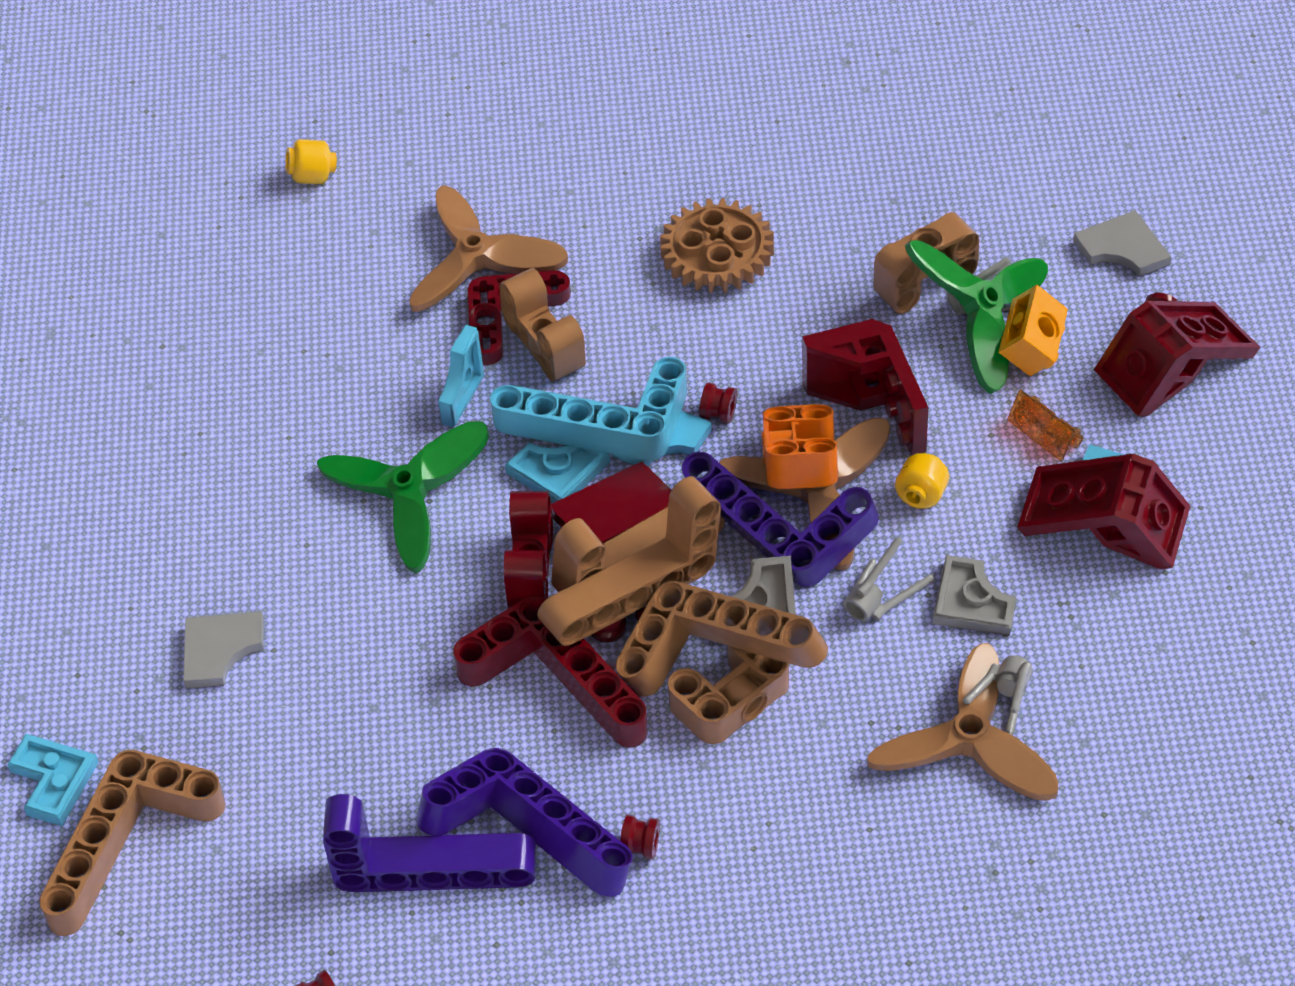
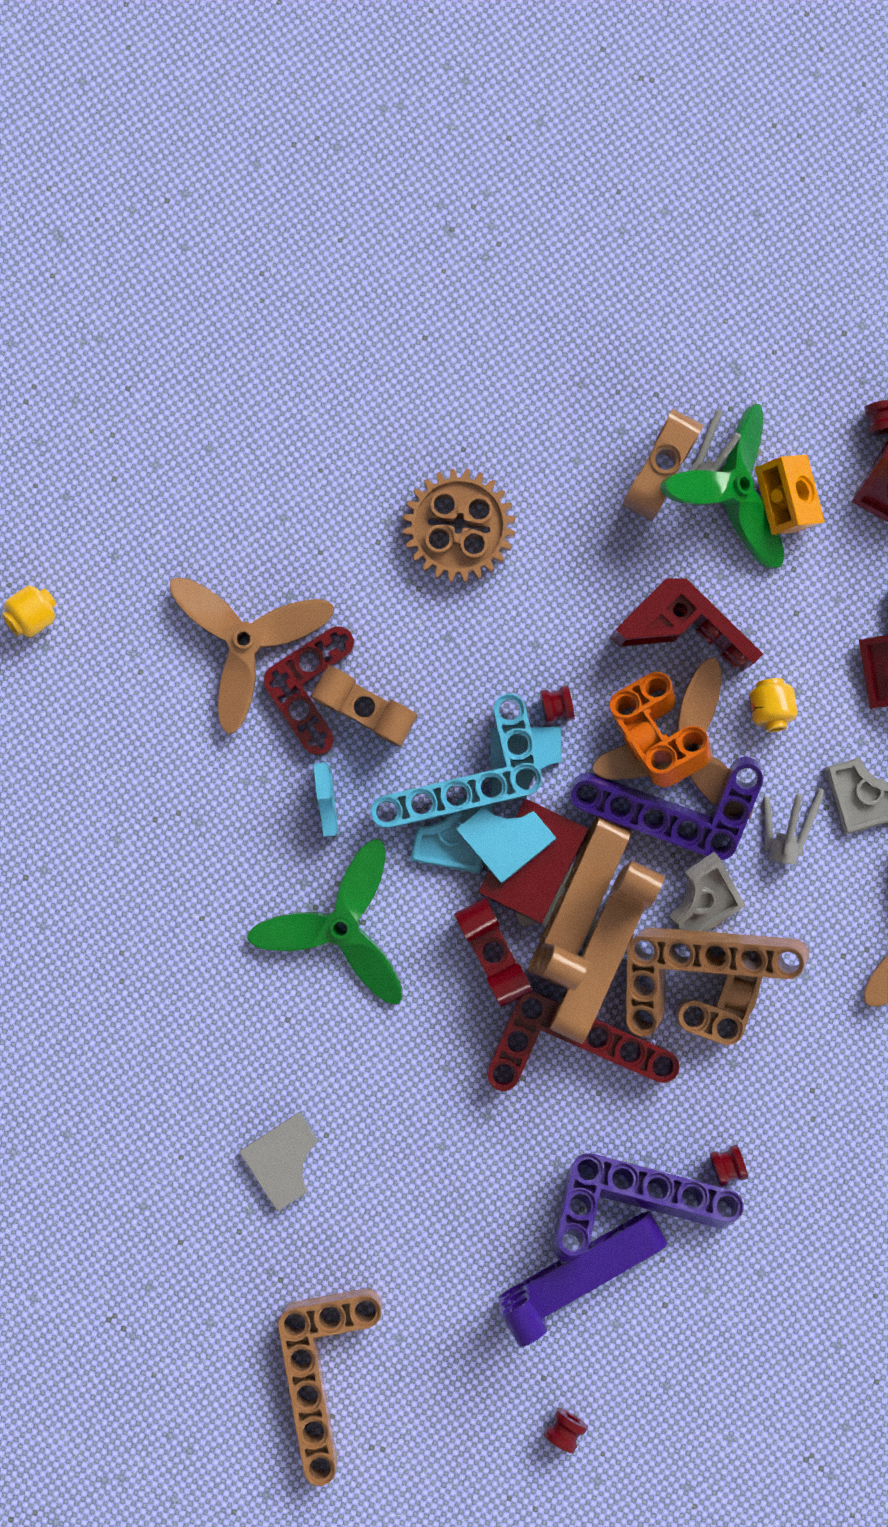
camera: 35 degrees left, 35 degrees up
(60, 774) = (232, 1339): medium azure tile -> none
(600, 478) = (505, 843): none -> medium azure tile
(1043, 426) = (856, 593): clear orange hinge -> none
(1125, 242) = (809, 340): light grey tile -> none

